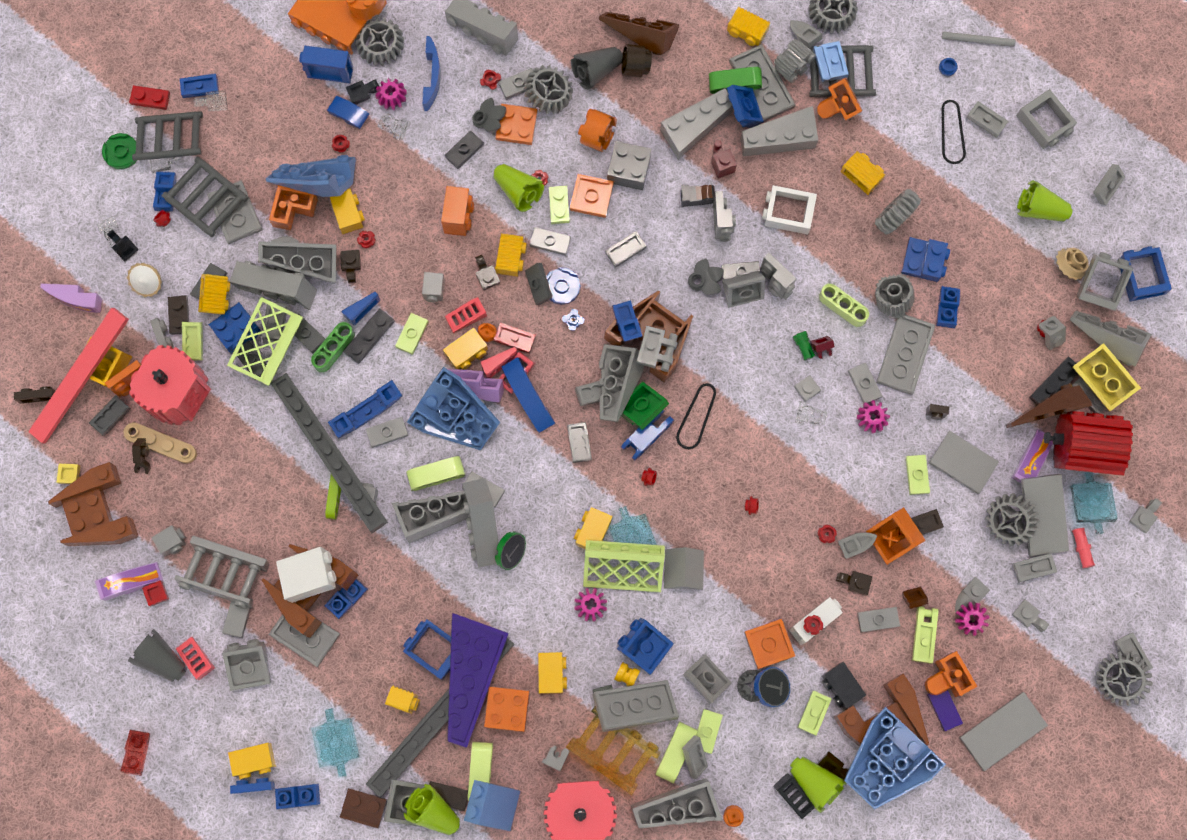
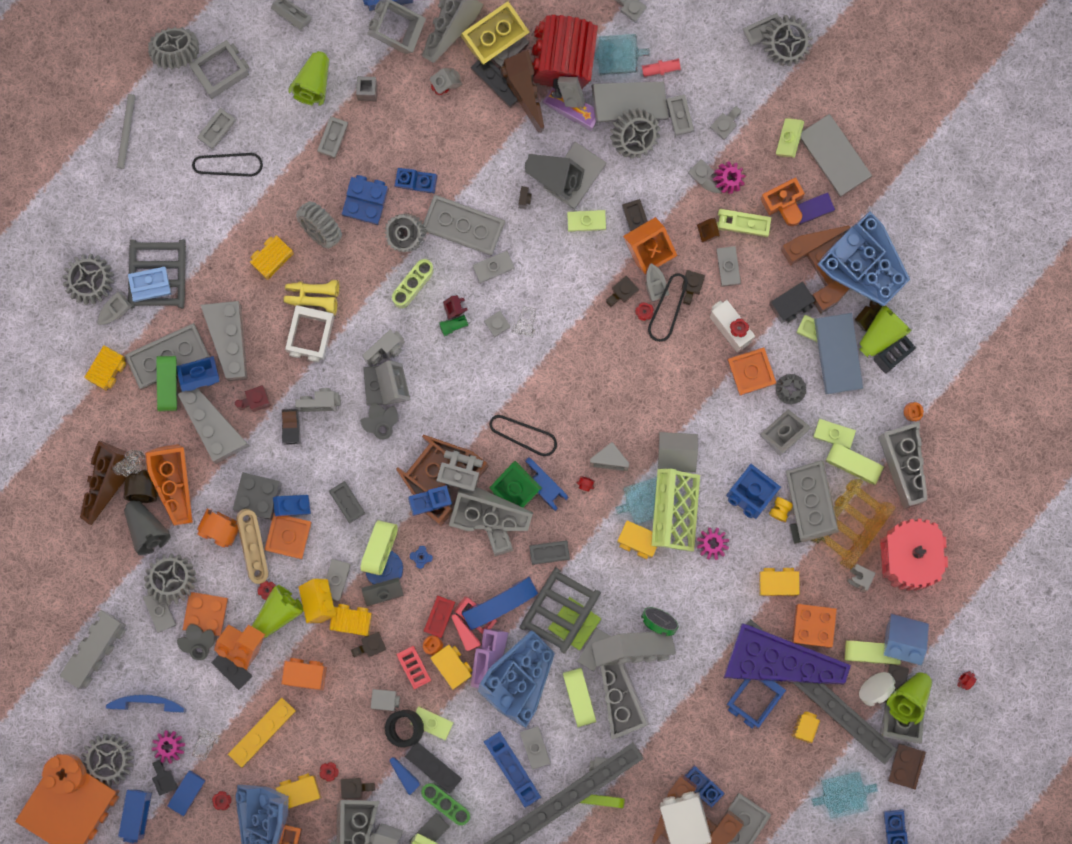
camera: 85 degrees left, 5 degrees up
(402, 295) = (418, 728): none -> black tyre
(404, 178) = (261, 732): none -> yellow plate
(441, 775) = (877, 688): none -> white tile
(485, 152) = (239, 646): none -> orange brick
(490, 74) = (153, 636): red plate -> none
(509, 468) = (571, 616): none -> lime plate
(519, 473) = (573, 628): none -> dark grey bar
(528, 221) = (317, 601): none -> yellow brick
(559, 204) = (296, 570): yellowish green plate -> none
(580, 160) = (252, 546): none -> tan plate
(581, 278) = (379, 547): none -> yellowish green beam
(620, 196) = (291, 505): none -> blue plate
(648, 83) = (169, 475): none -> orange wedge
(658, 48) = (130, 464): none -> clear plate
(675, 497) = (610, 458): none -> light grey slope
(695, 757) = (860, 445): light grey plate -> none
(752, 505) = (615, 383): red plate -> none
(772, 687) = (793, 370): black tile -> none
(792, 734) = (838, 353): none -> sand blue tile
(794, 60) = (148, 321): light grey brick -> none
(819, 227) = (329, 303): none -> light yellow piece
(835, 548) = (677, 310): none -> black piece
(842, 101) = (194, 275): orange brick -> none
(848, 512) = (623, 290): none -> dark brown plate
(867, 411) = (536, 259): dark pink gear -> none
(948, 66) = (156, 164): blue plate -> none
(963, 440) = (555, 173): none -> dark grey slope
(986, 226) = (332, 137): none -> light grey plate
(1019, 682) = (790, 138): none -> yellowish green plate
(1038, 255) = (366, 88): none -> flat silver brick
(1051, 451) = (571, 92): none -> light grey plate
(1064, 74) = (173, 48): none -> light grey gear
(1072, 263) = (373, 55): tan piece -> none

